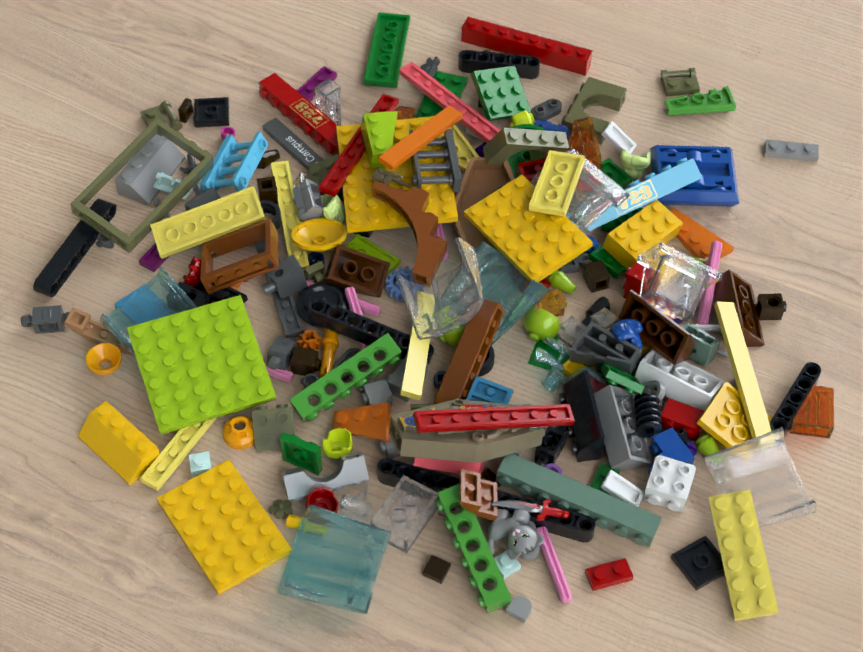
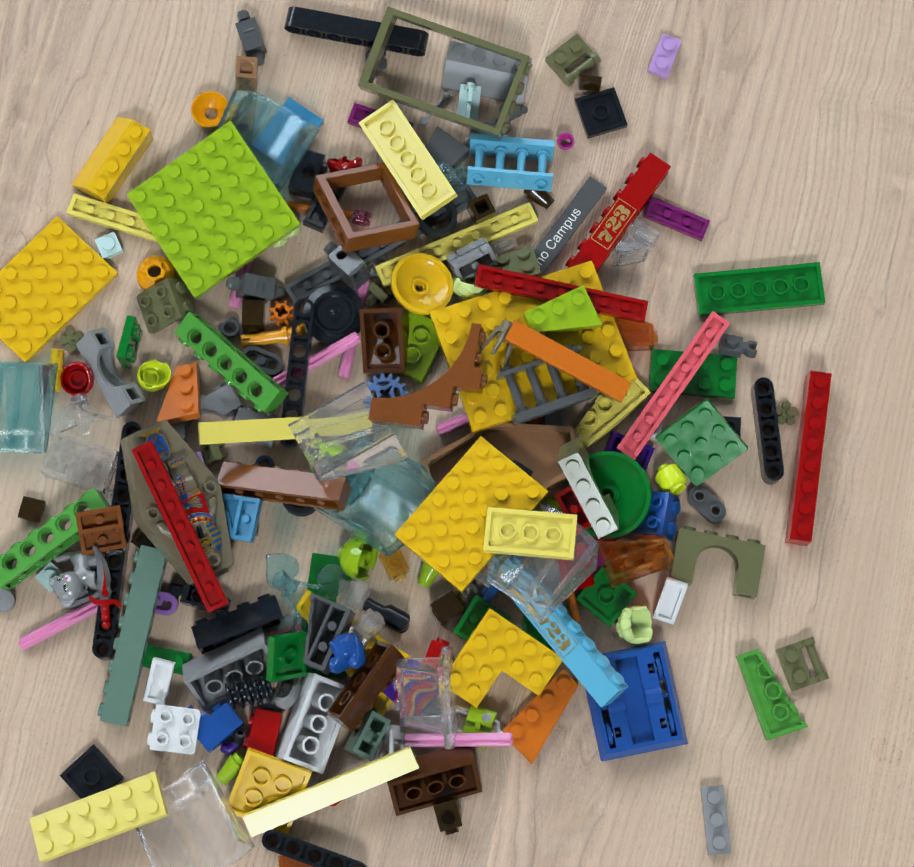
camera: 70 degrees right, 25 degrees up
(181, 67) = (664, 56): none -> lavender plate
(609, 574) = (59, 683): red plate -> none

